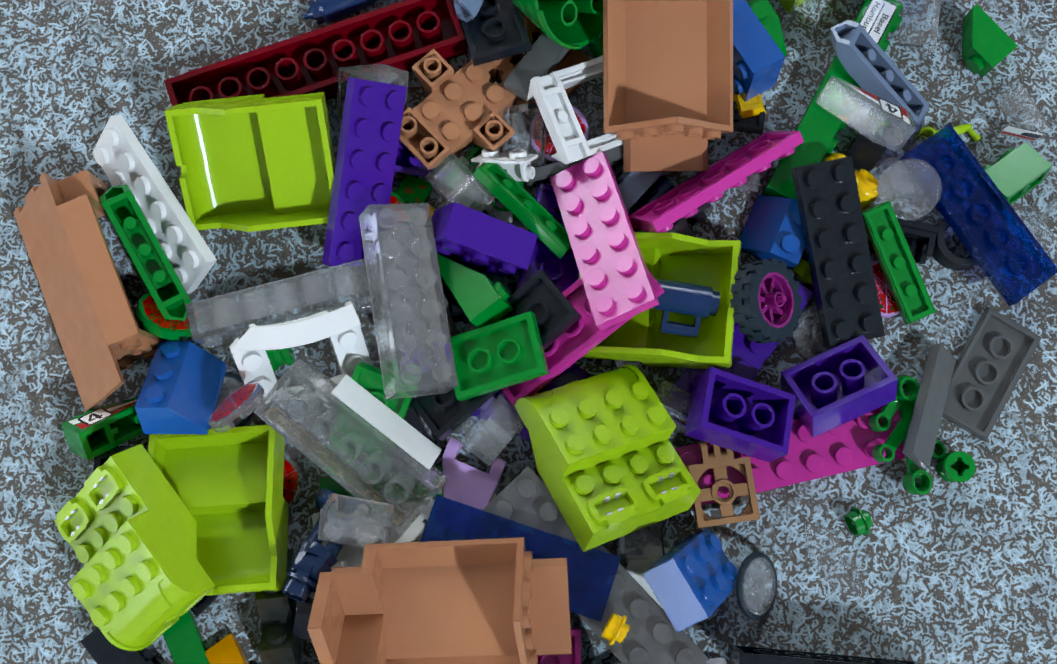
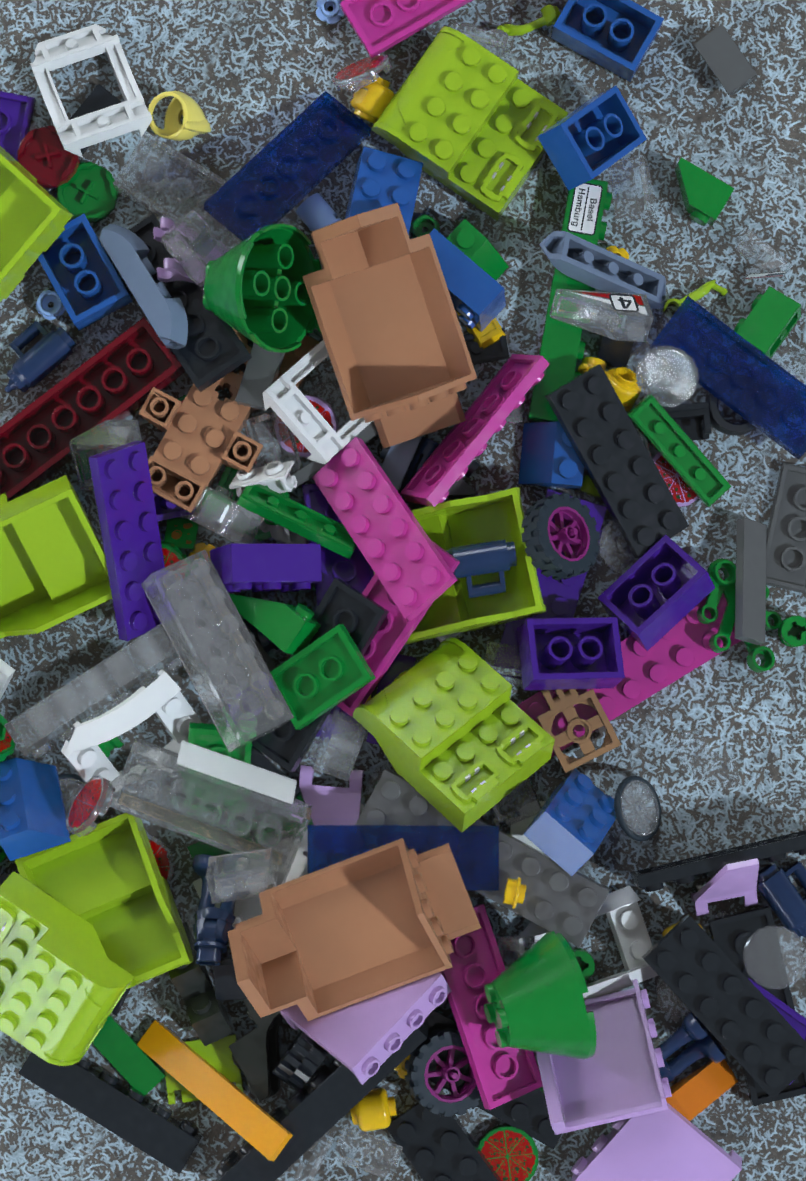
camera: 20 degrees left, 5 degrees up
(861, 520) = (719, 714): green plate -> none

